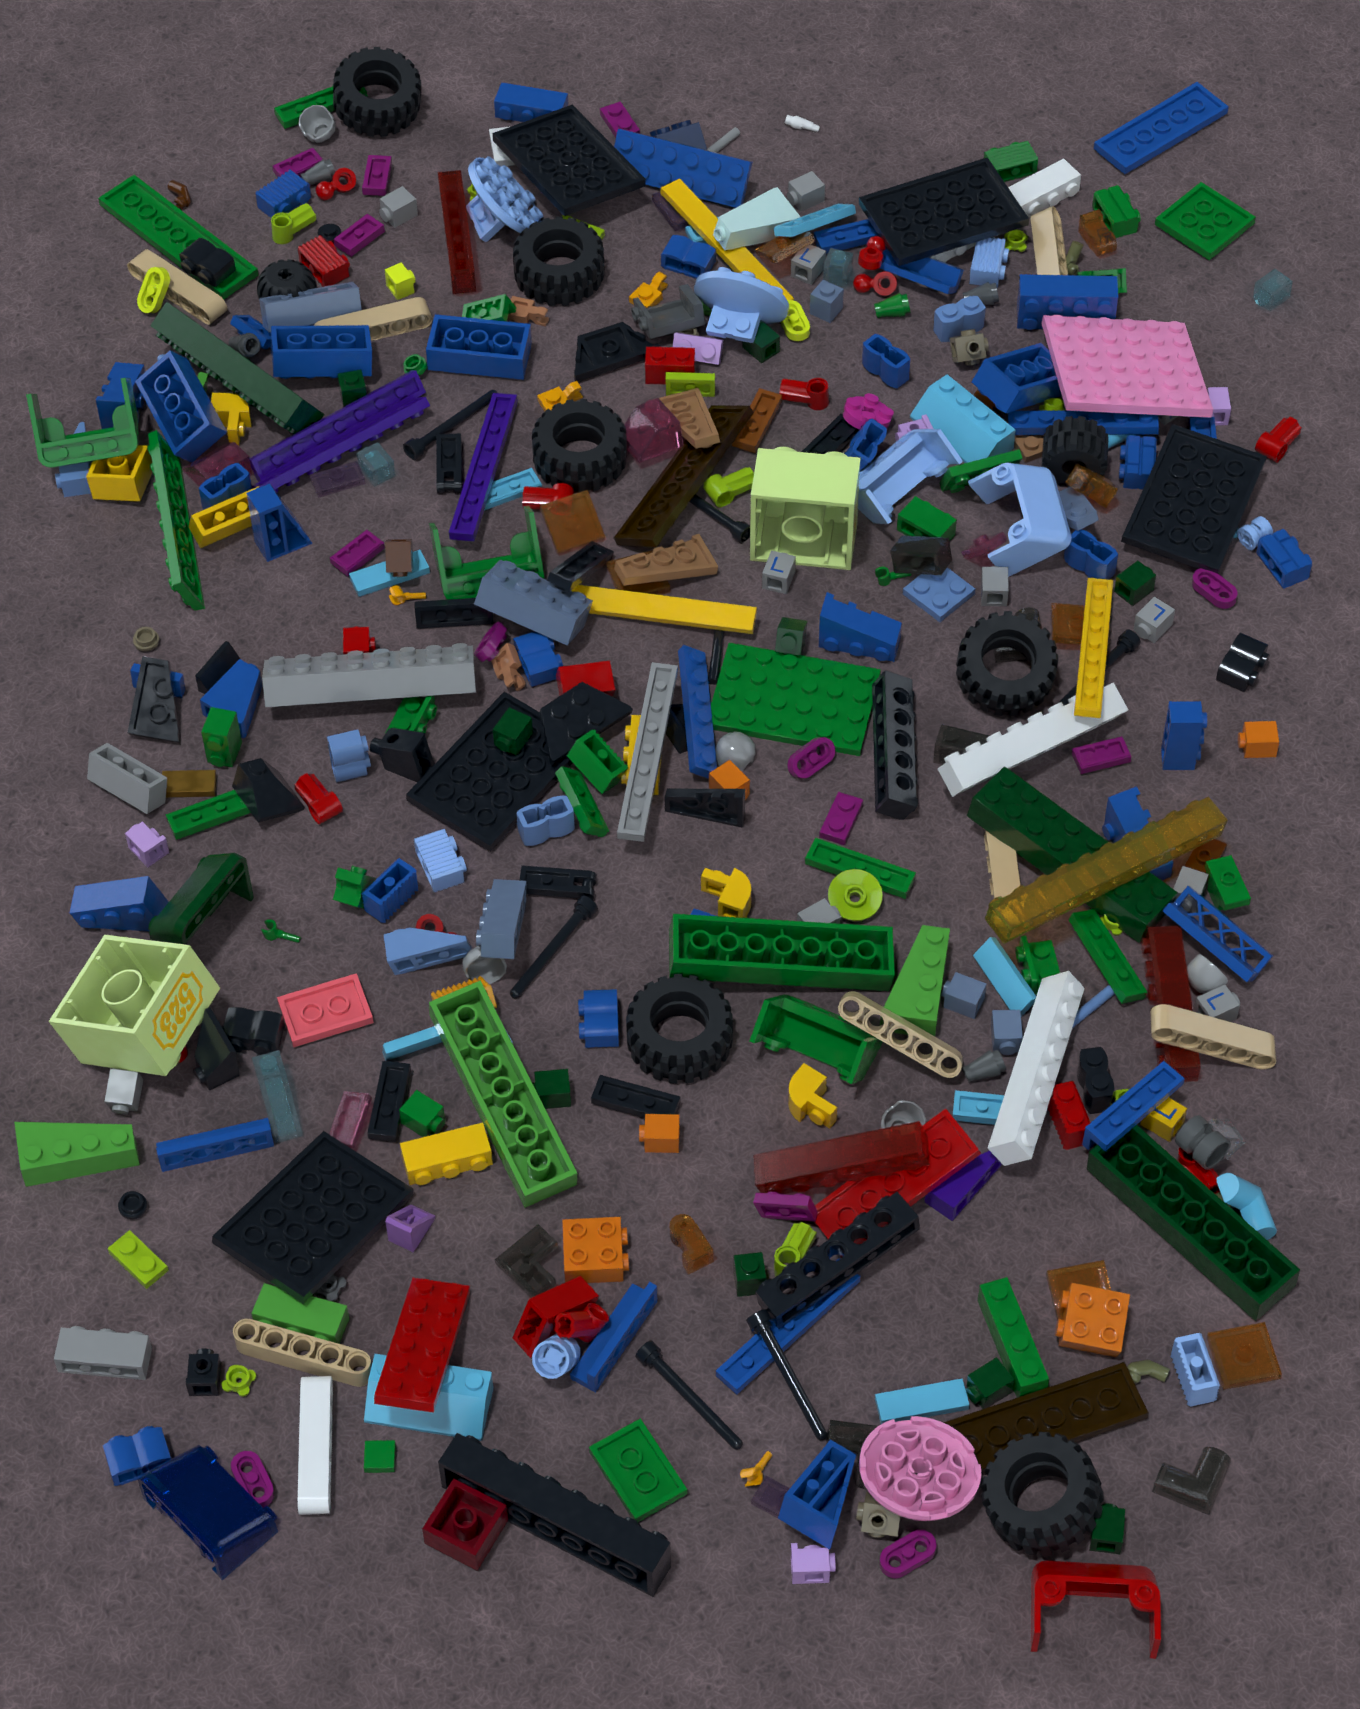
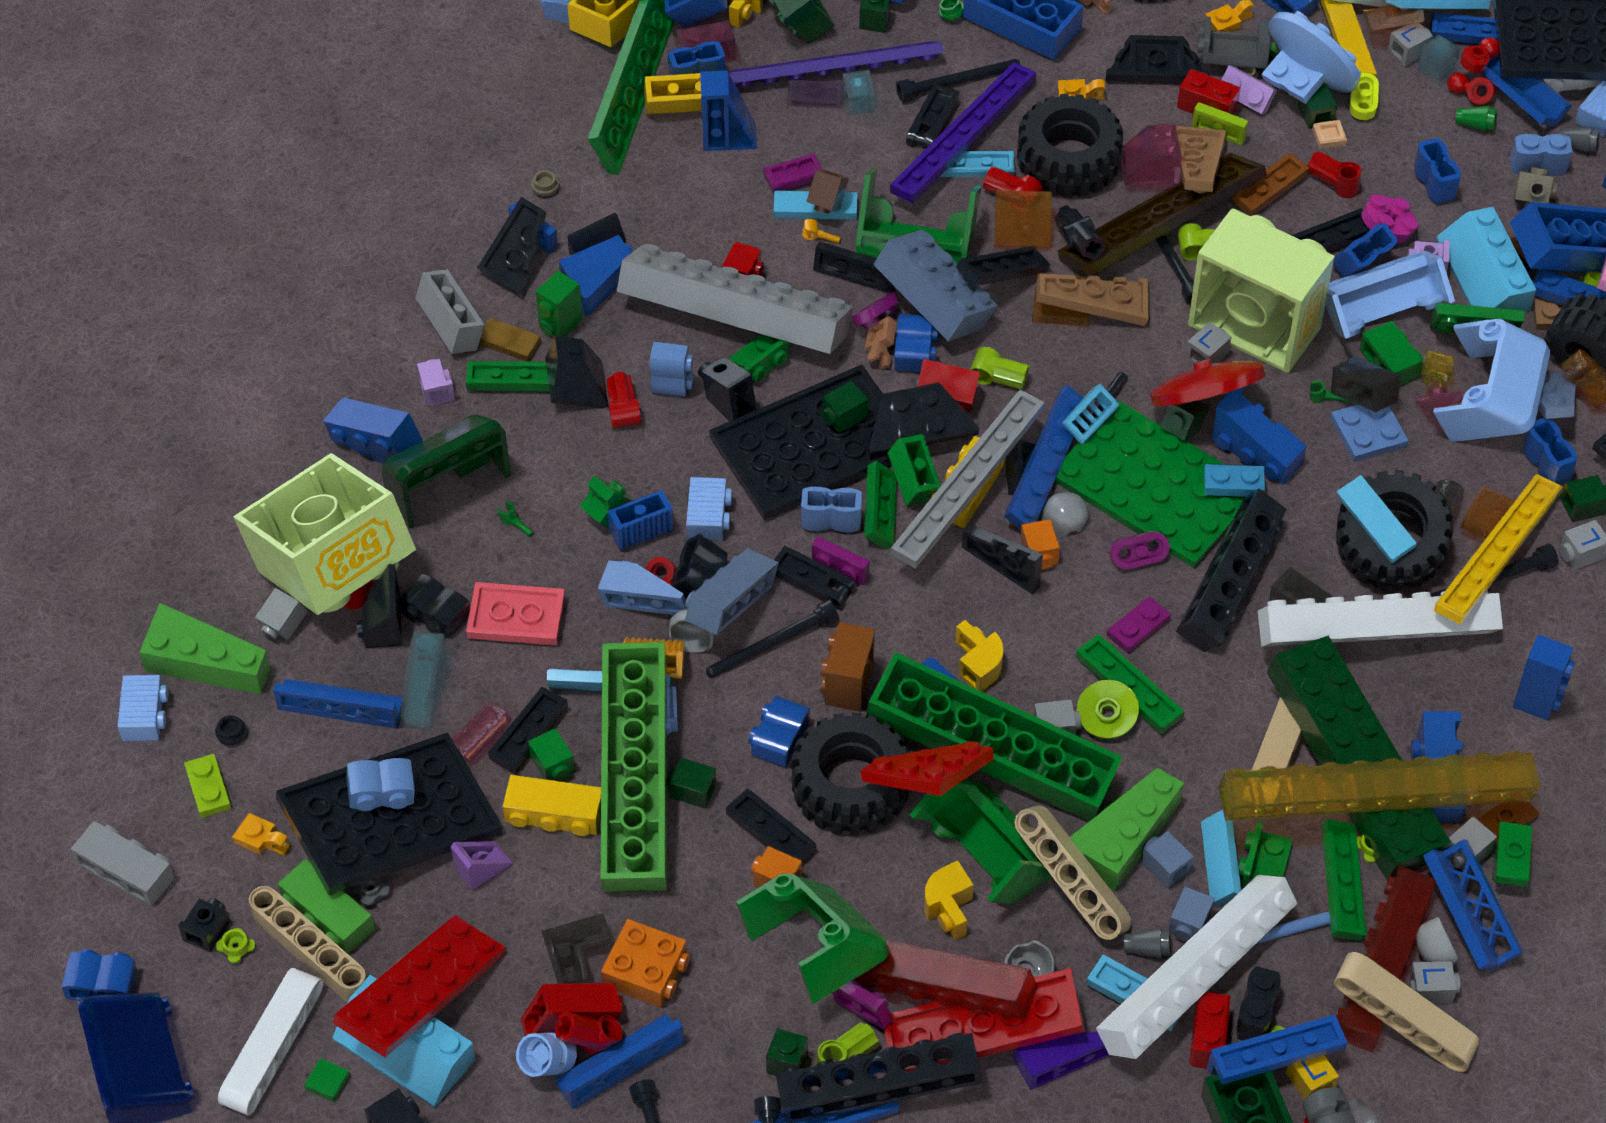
camera: 25 degrees right, 0 degrees up
(44, 1217) = (141, 707): none -> light blue brick
(205, 1281) = (260, 834): none -> light orange plate
(254, 1480) = (194, 1051): magenta plate -> none
(298, 1194) = (380, 784): none -> medium blue brick
(337, 425) = (842, 40): dark purple plate -> none
(461, 910) = (698, 562): none -> black brick
(574, 859) = (841, 560): none -> magenta plate
(618, 653) = (999, 369): none -> lime piece
(627, 515) = (1080, 232): none -> black piece
(631, 943) = (848, 666): none -> dark orange brick
(670, 609) = (1073, 343): yellow tile -> none
(695, 1247) = (746, 987): clear orange leg -> none
(725, 650) = (1104, 399): none -> medium azure slope
(752, 997) = (929, 769): none -> red plate
(761, 1160) = (847, 938): none -> green windscreen
(781, 362) = (1329, 134): none -> light nougat tile
(800, 600) = (1207, 381): none -> red dish
(826, 301) = (1408, 88): sand blue brick -> none
(857, 672) = (1233, 480): none -> dark azure plate
(968, 521) = (1437, 368): none -> clear yellow plate
(994, 586) = (1429, 445): light grey brick -> none
(994, 659) = (1376, 519): none -> medium azure tile
(1101, 755) = (1451, 665): magenta plate -> none

